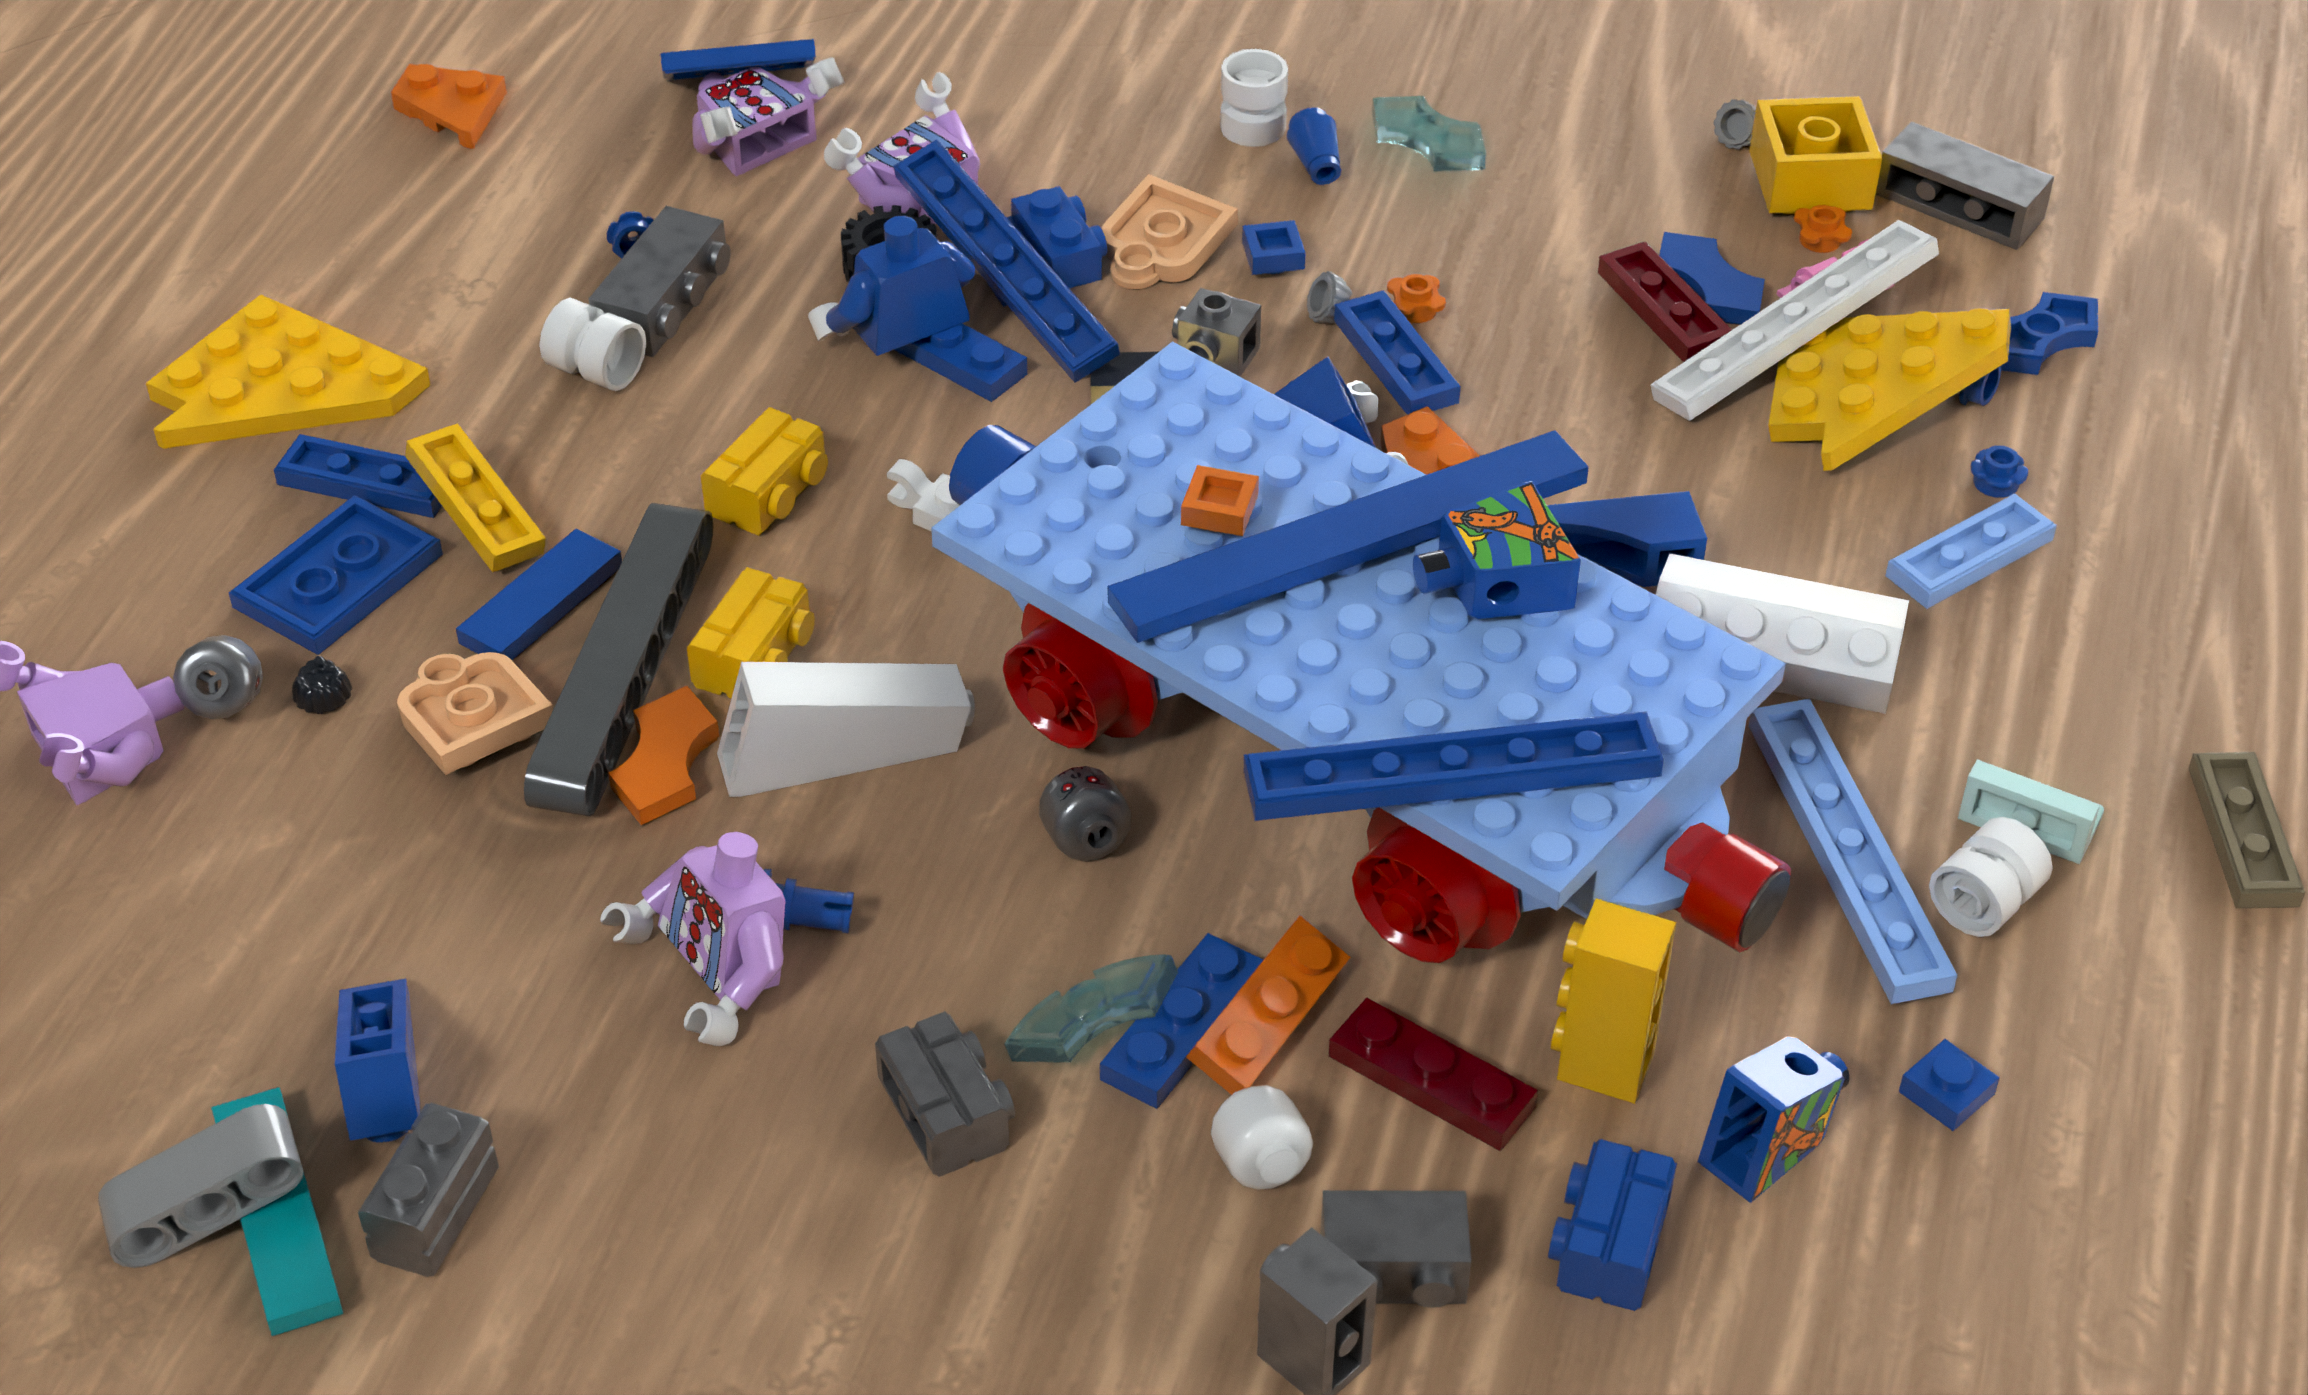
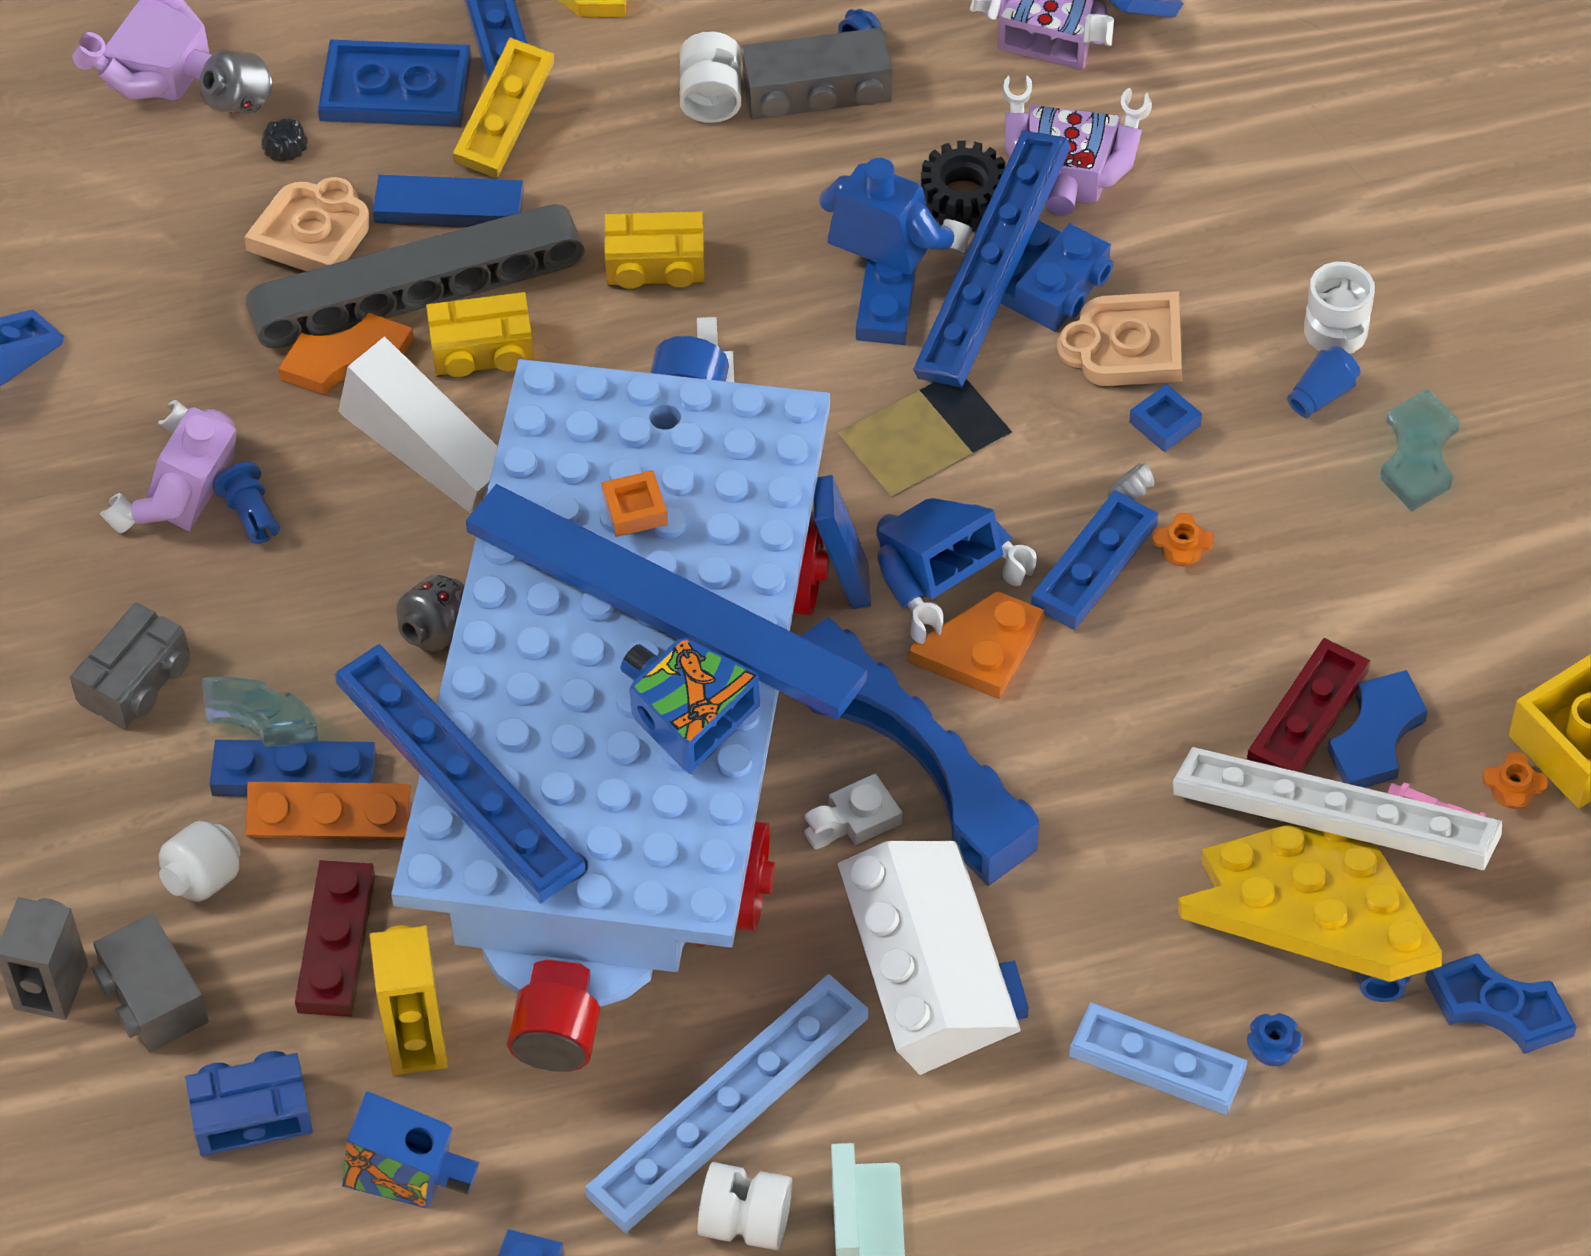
camera: 60 degrees right, 10 degrees up
(1220, 329) = (1012, 433): flat silver brick -> none

